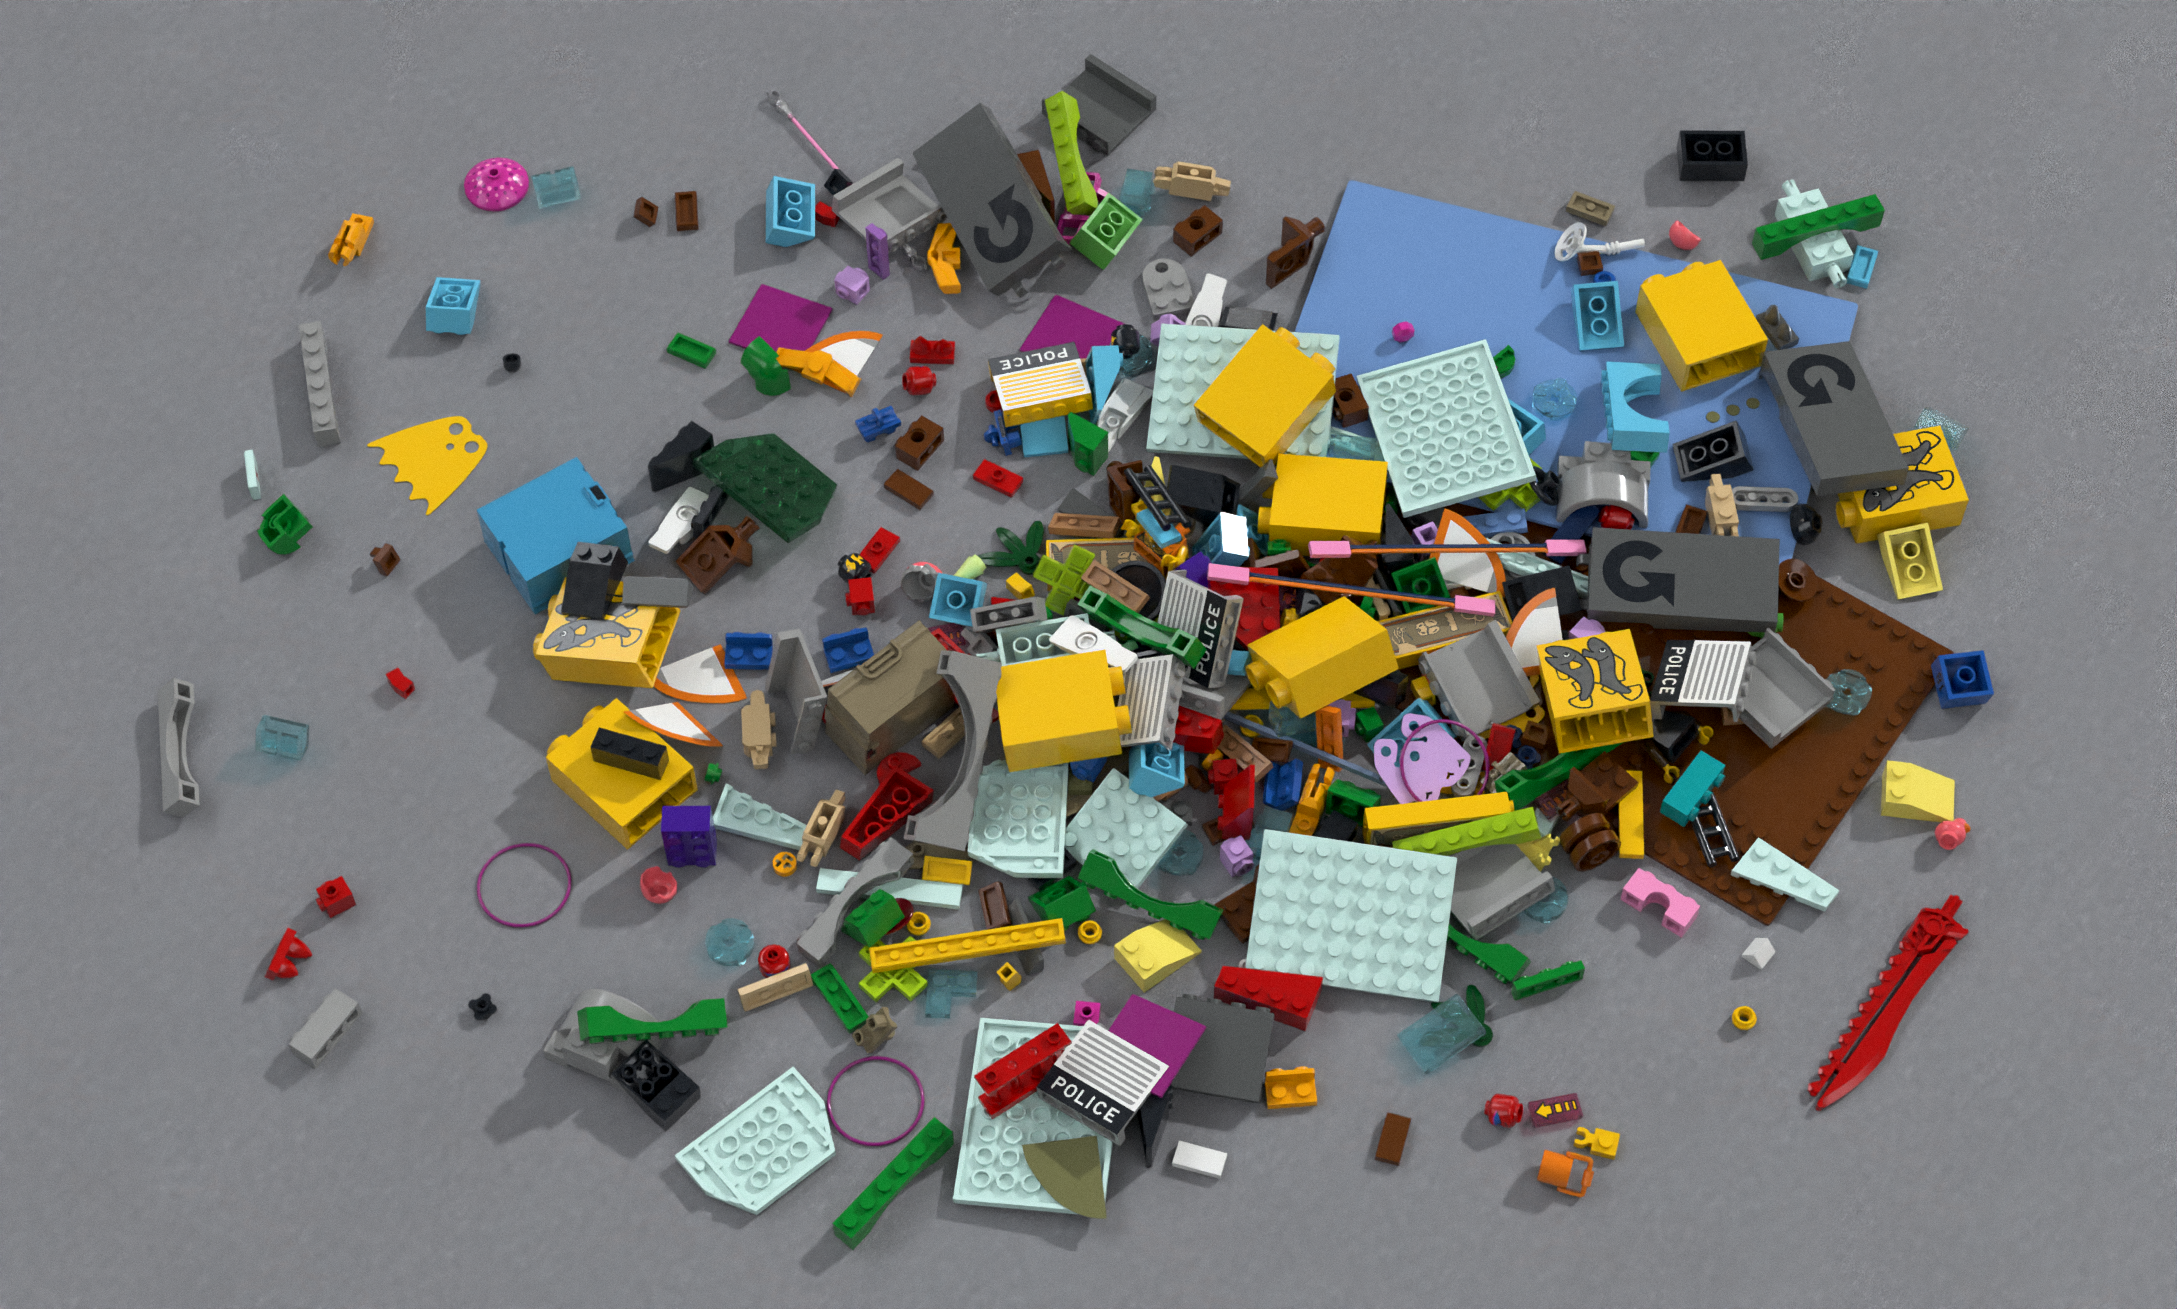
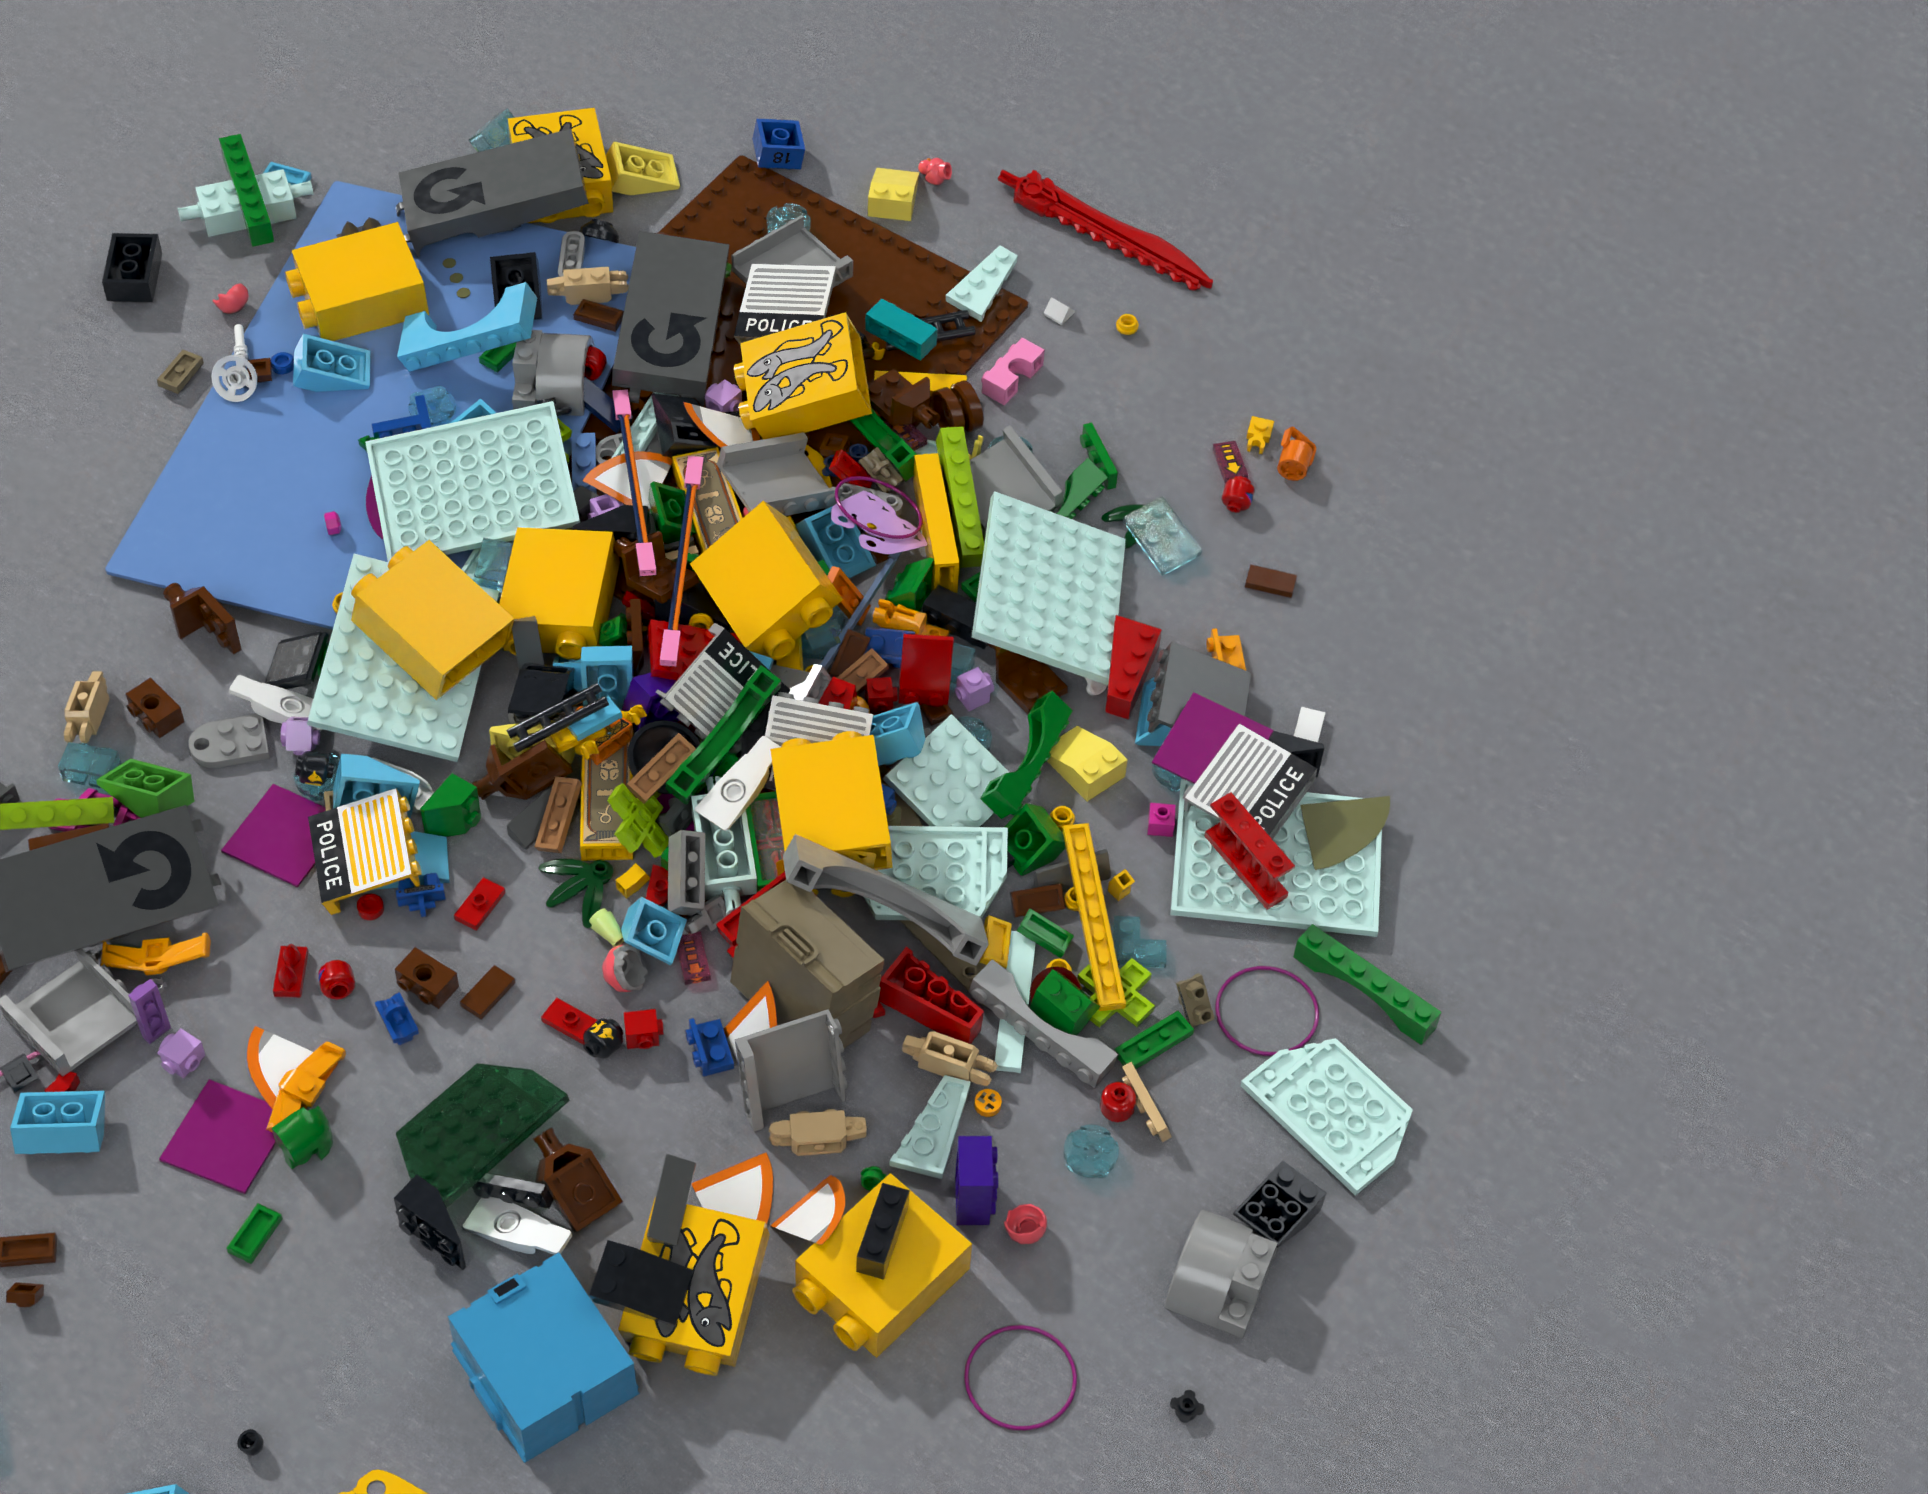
camera: 95 degrees left, 5 degrees down
(606, 1023) = (1196, 1167): green arch -> none
(748, 651) = (709, 1148): blue bracket -> none
(957, 911) = (1045, 933): none -> green tile
(1522, 384) = (405, 424): none -> blue bracket

